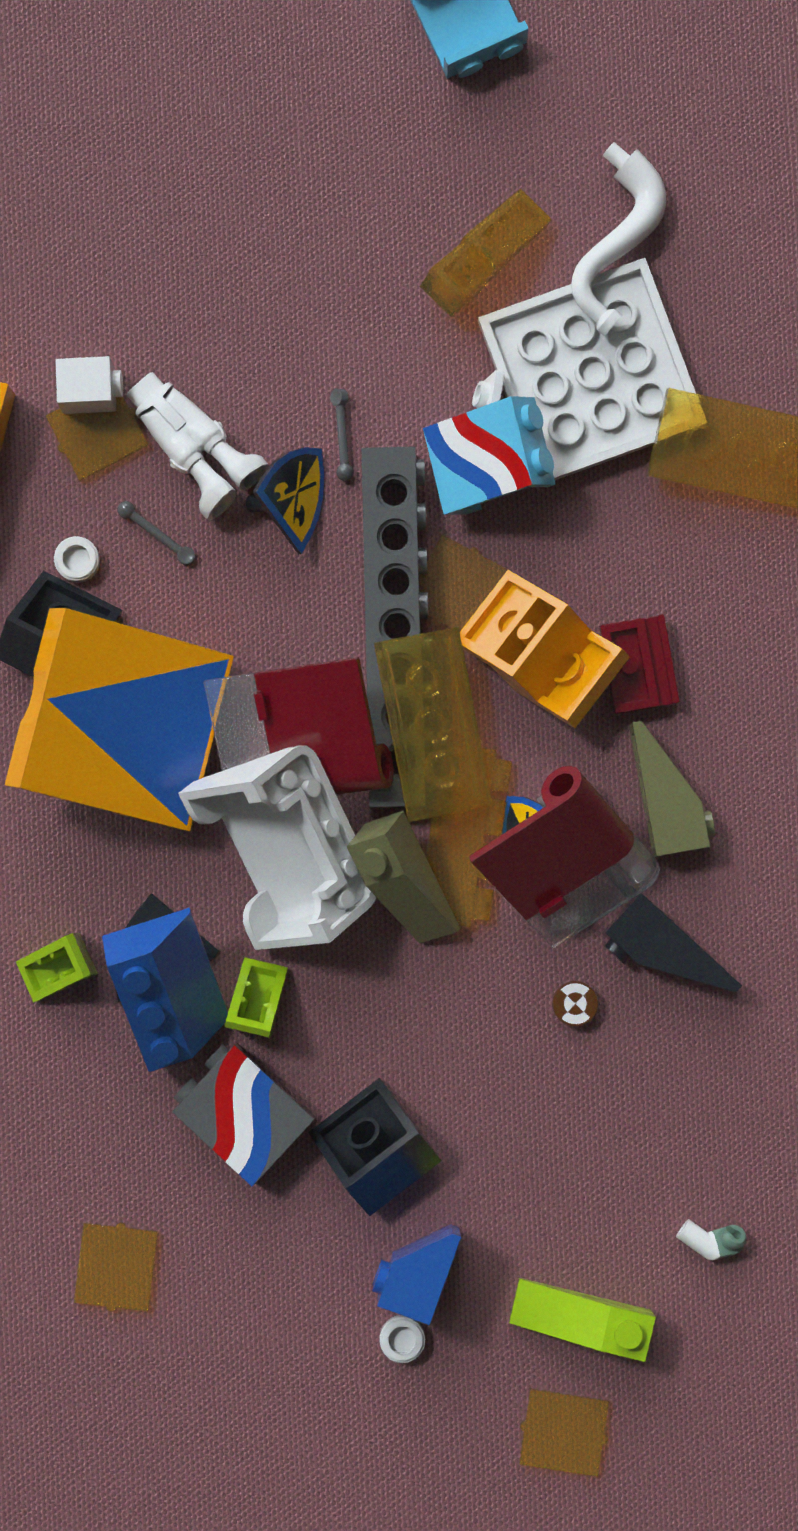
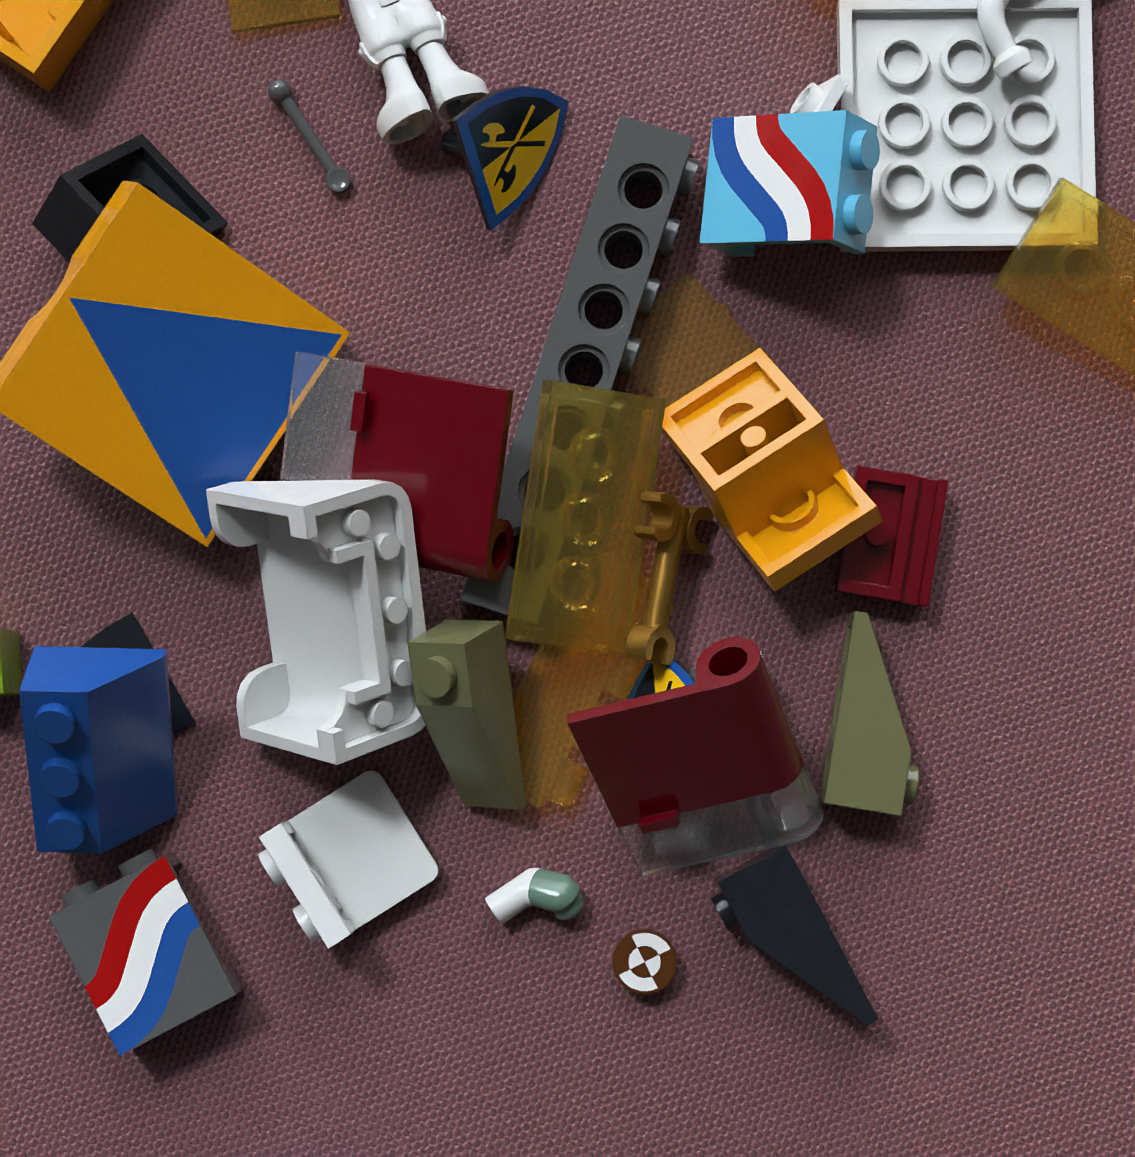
camera: 20 degrees right, 0 degrees up
(77, 559) = (191, 134): white tile -> none
(256, 997) = (218, 803): lime slope -> none
(339, 398) = (615, 44): dark grey hinge -> none
(355, 1003) = (348, 858): none -> white bracket
(374, 1147) = (305, 1060): black slope -> none
(489, 980) = (539, 889): none -> arm
(495, 713) = (675, 532): none -> pearl gold bar

